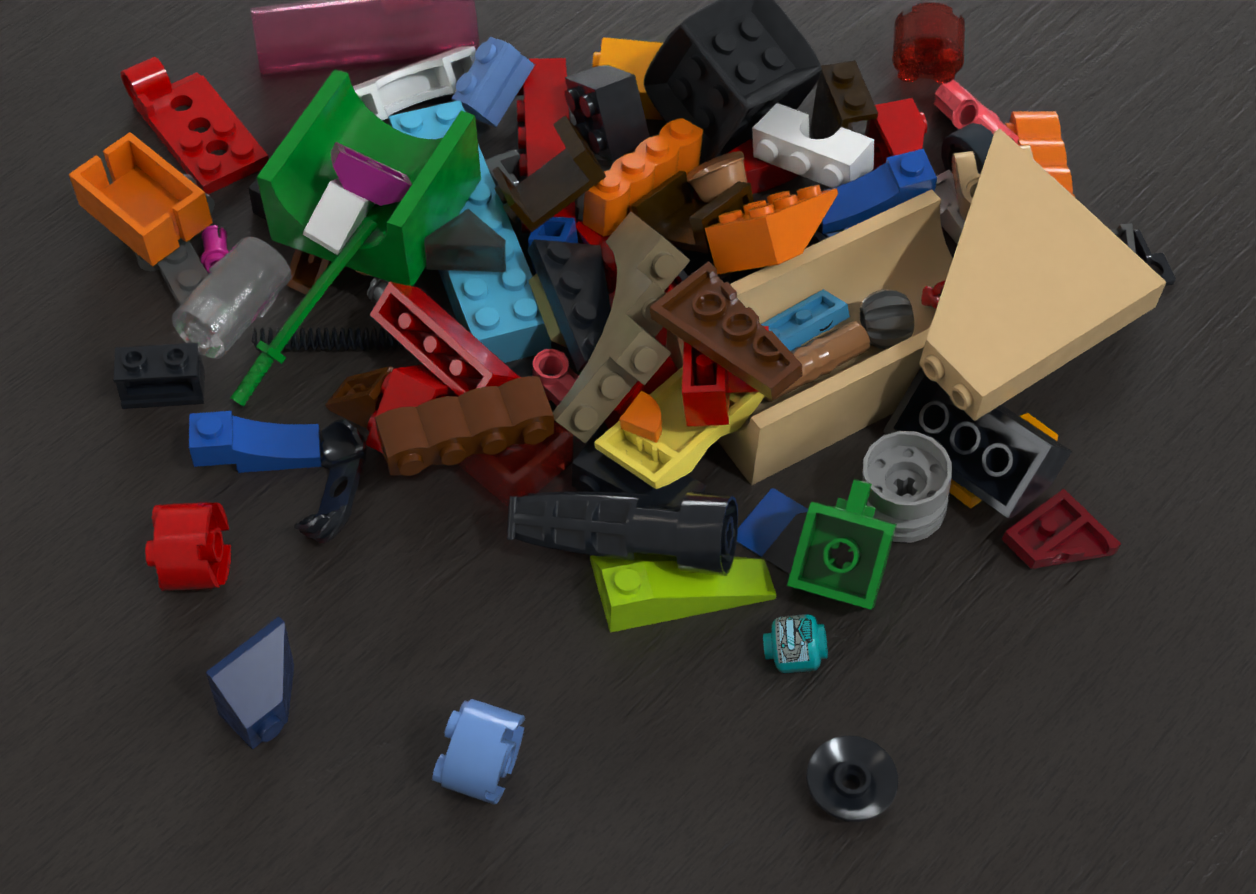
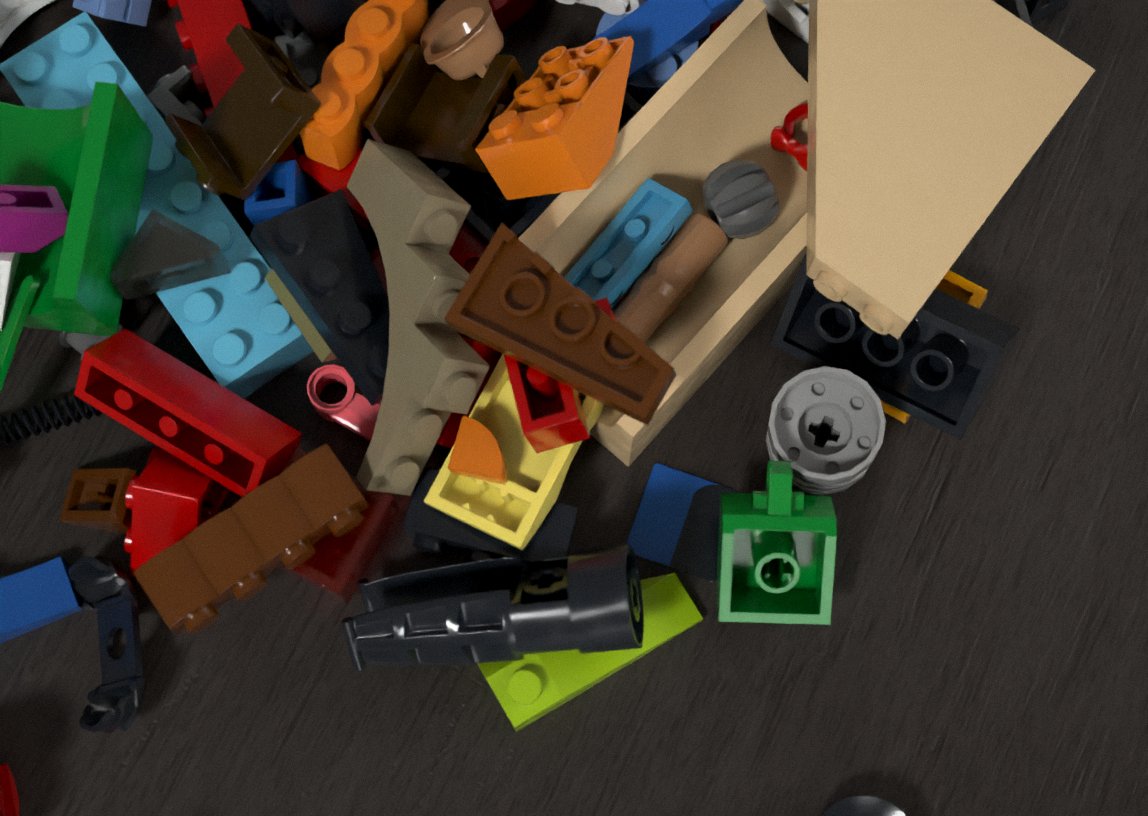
camera: 15 degrees left, 20 degrees up
(796, 643) = (748, 688): head -> none
(1059, 534) = (1020, 426): dark red wing -> none

